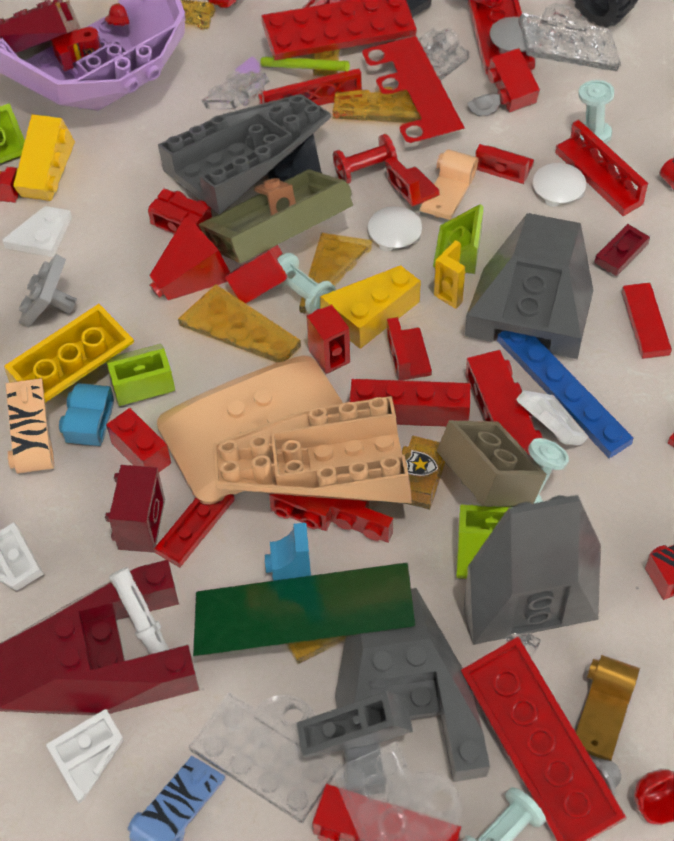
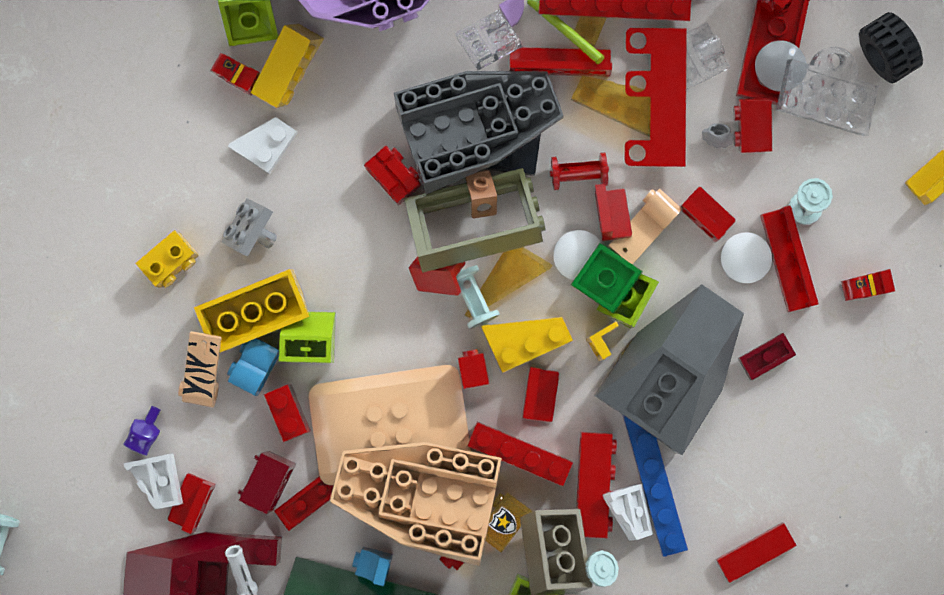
camera: 25 degrees right, 30 degrees up
(58, 568) = (195, 497): none -> red panel
(188, 264) = (382, 238): red slope -> none
(239, 325) = (403, 313): clear yellow wing -> none
(430, 226) = (606, 278): none -> green tile
(646, 320) = (753, 435): red tile -> none

